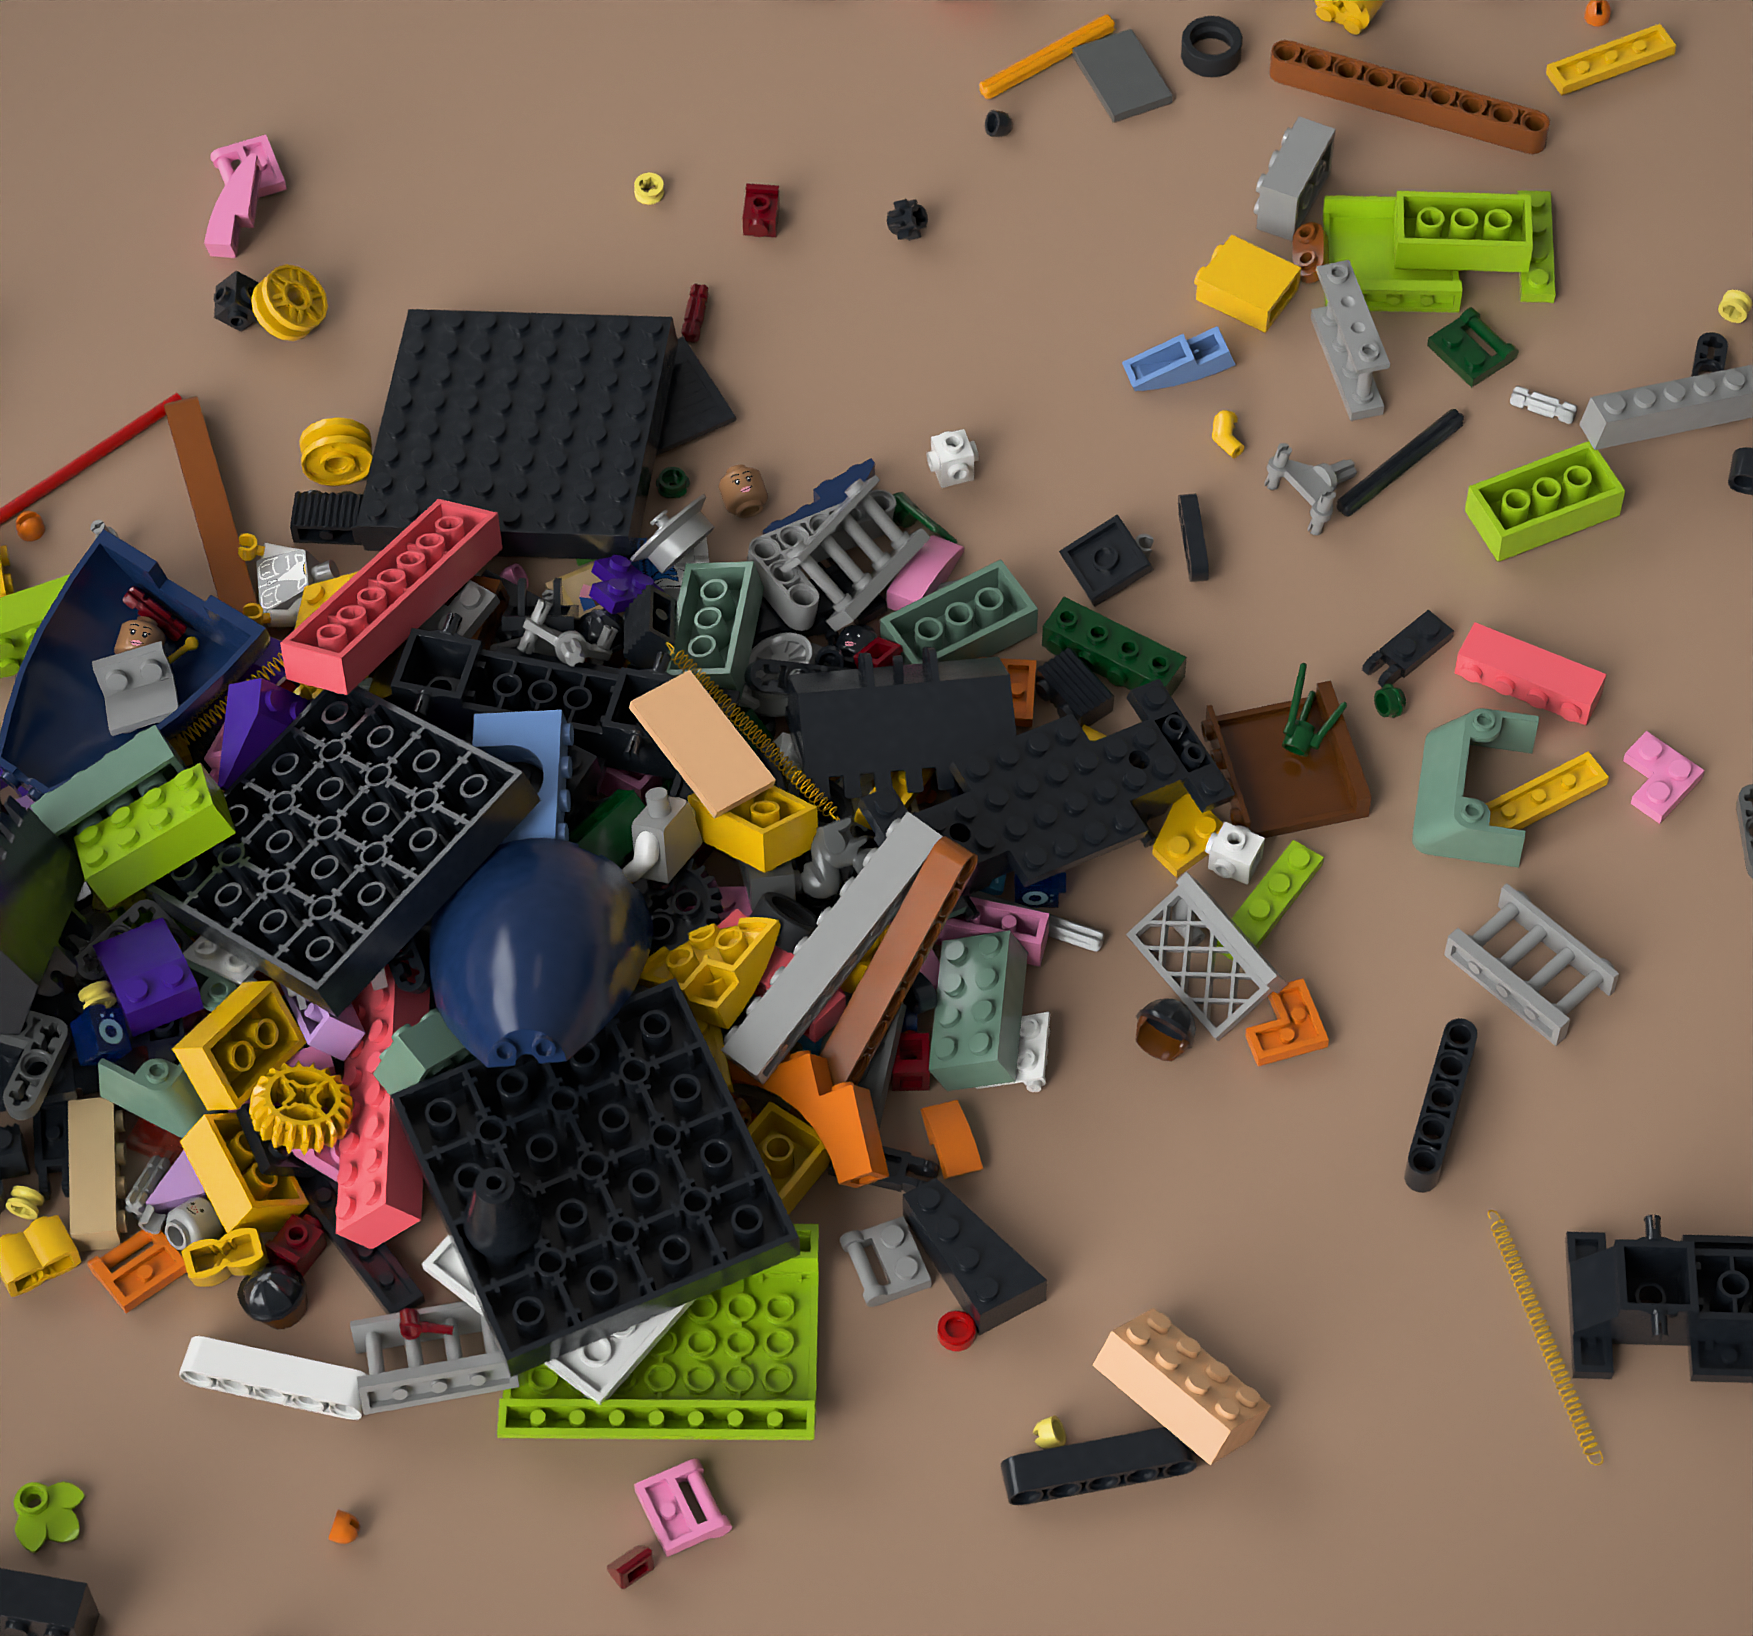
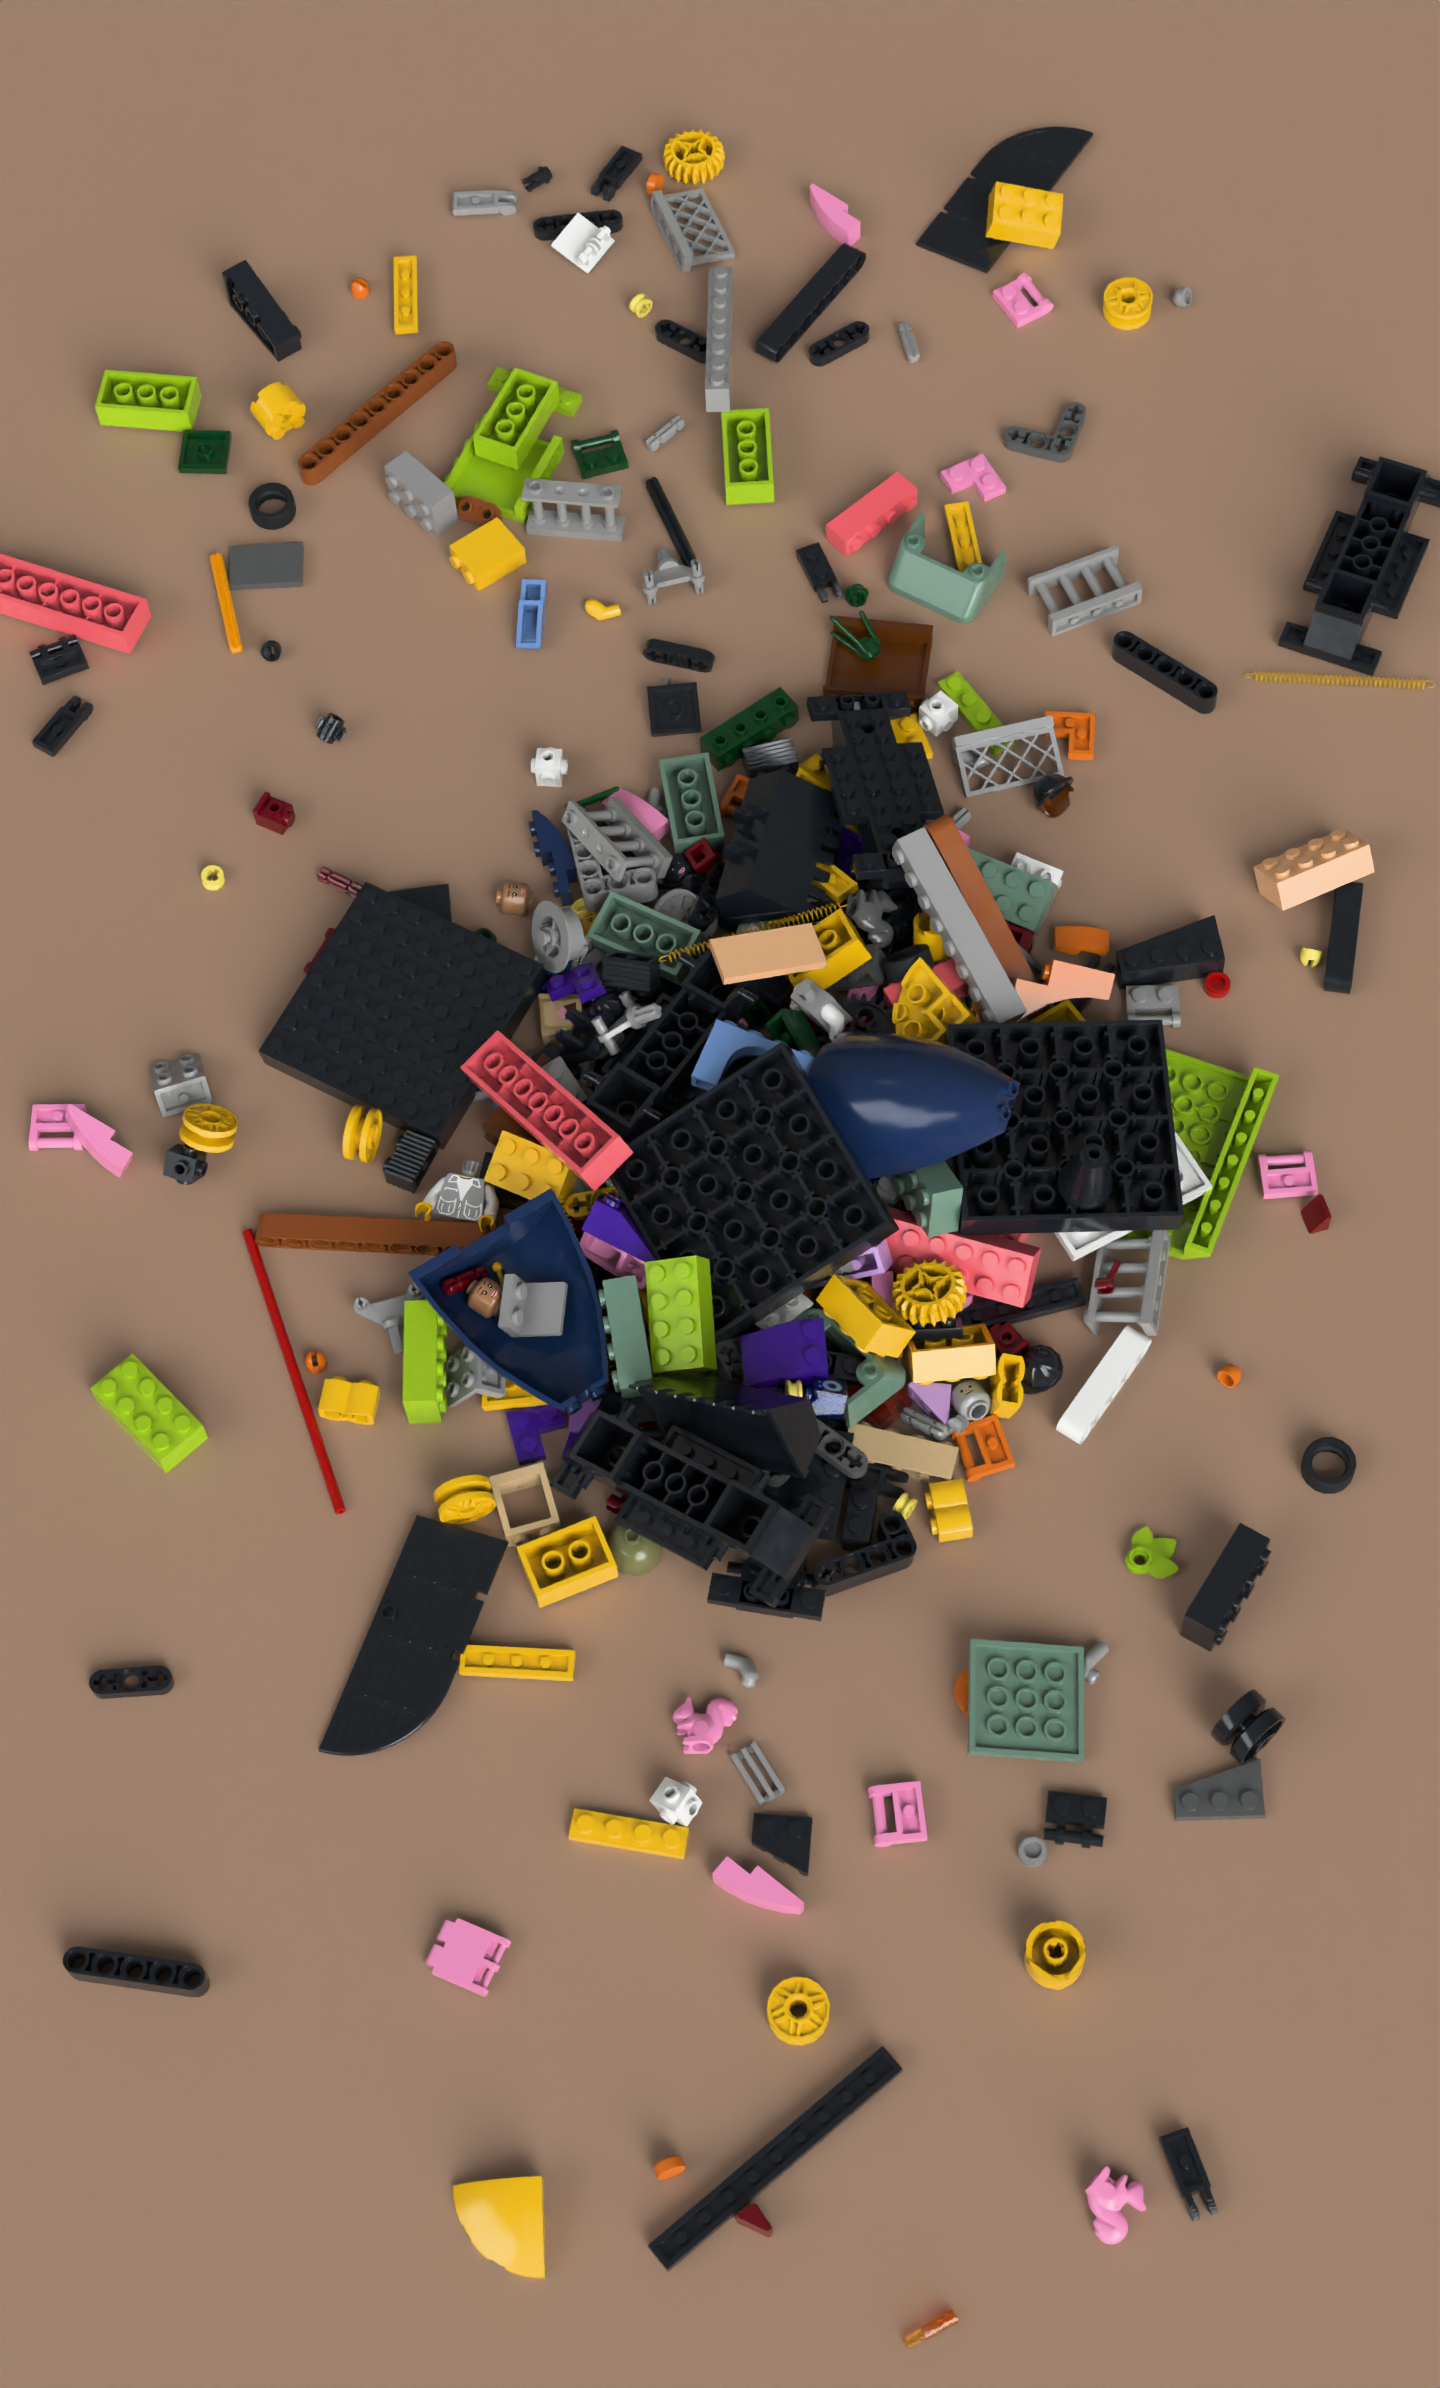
camera: 65 degrees left, 5 degrees up
(345, 254) = (179, 1084): none -> light grey bracket

